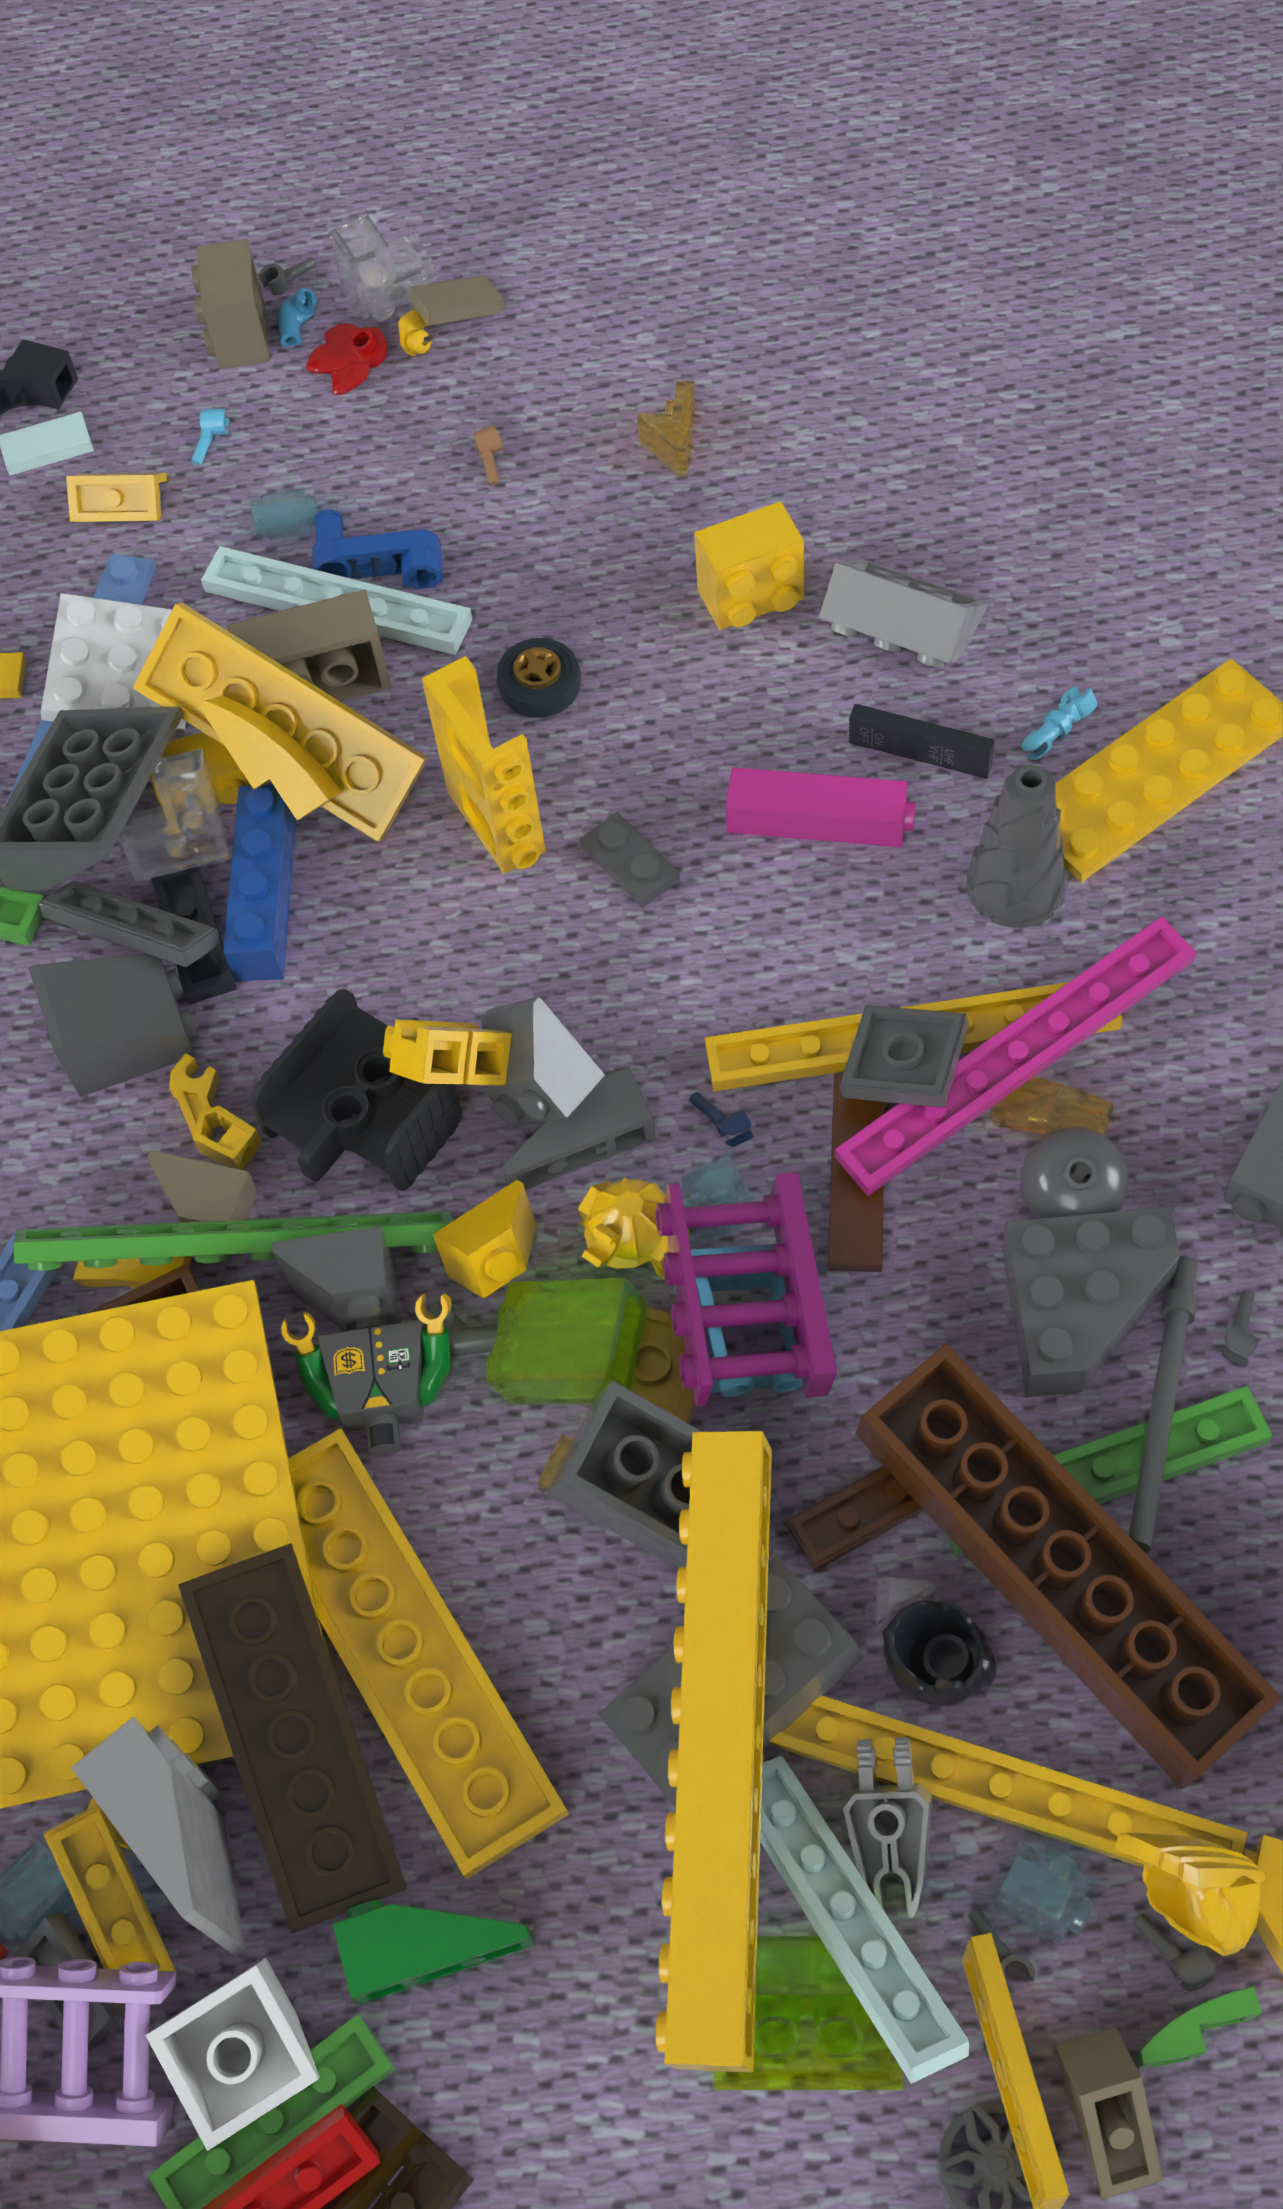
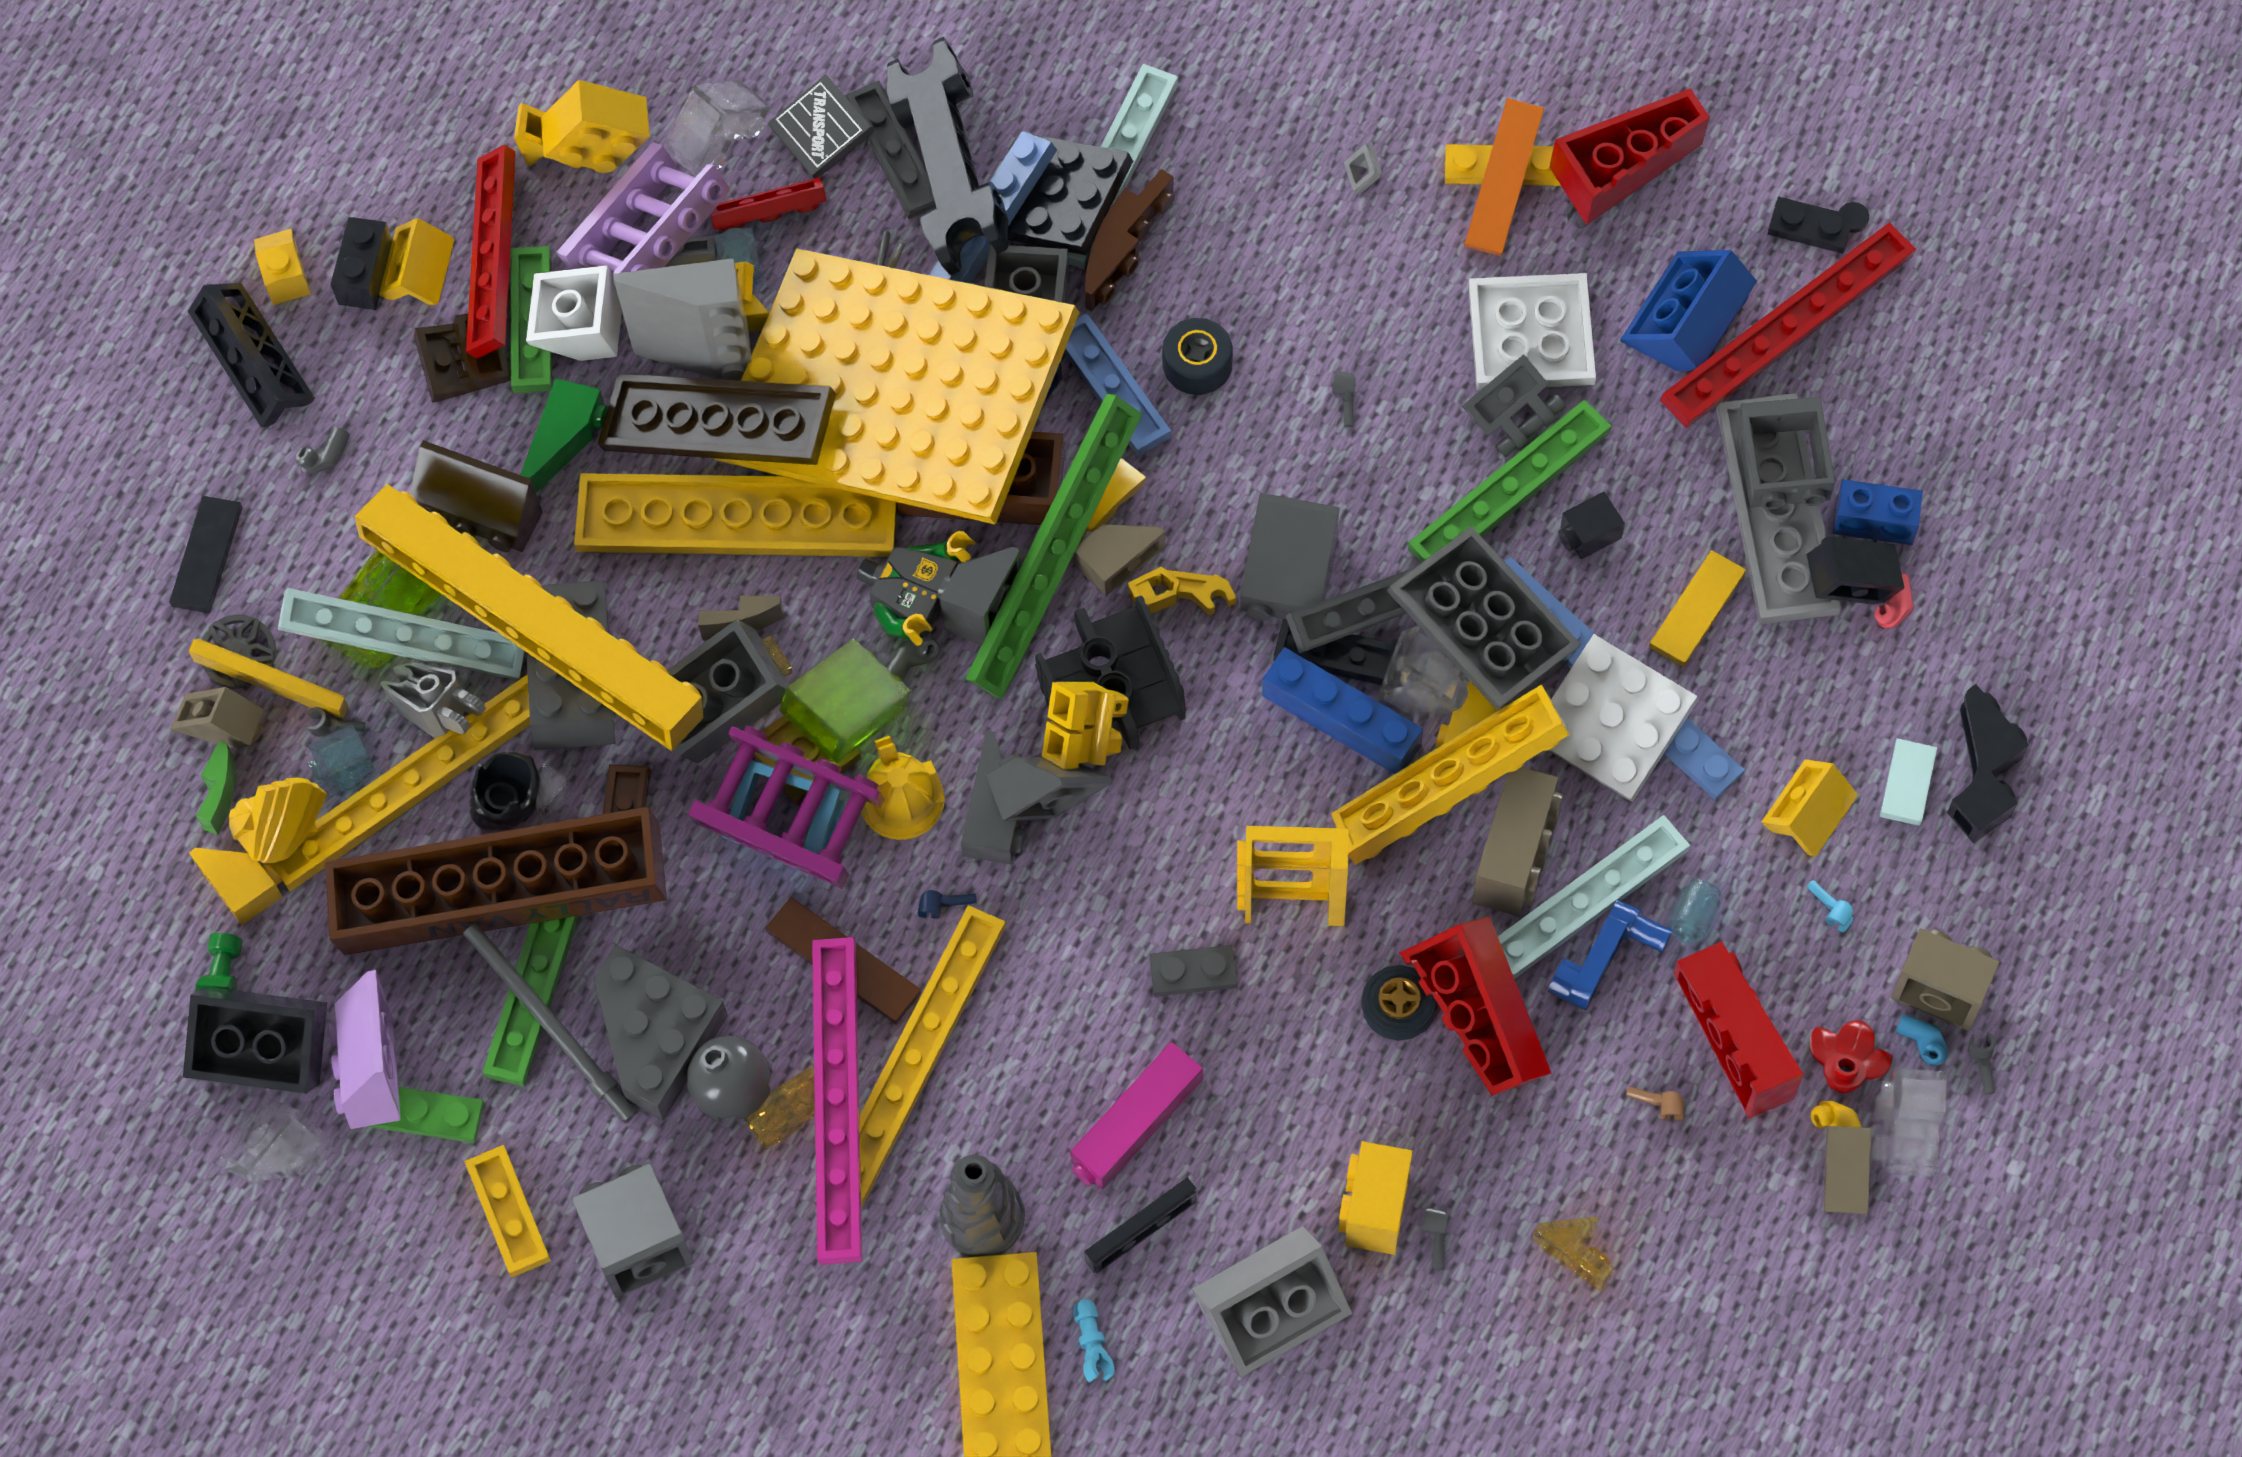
camera: 120 degrees right, 5 degrees up
(270, 755) = (1420, 749): yellow slope -> none
(384, 414) = (1738, 1029): none -> red wedge
(489, 1241) = (947, 698): yellow slope -> none
(498, 597) = (1481, 1003): none -> red wedge
(526, 1533) = (753, 611): none -> dark tan slope
(590, 1981) = (476, 497): none -> dark brown slope
(712, 1185) = (880, 852): clear light blue brick -> none
(904, 1056) = (885, 1022): dark grey tile -> none
(1236, 1336) = (555, 1104): dark grey hand -> none

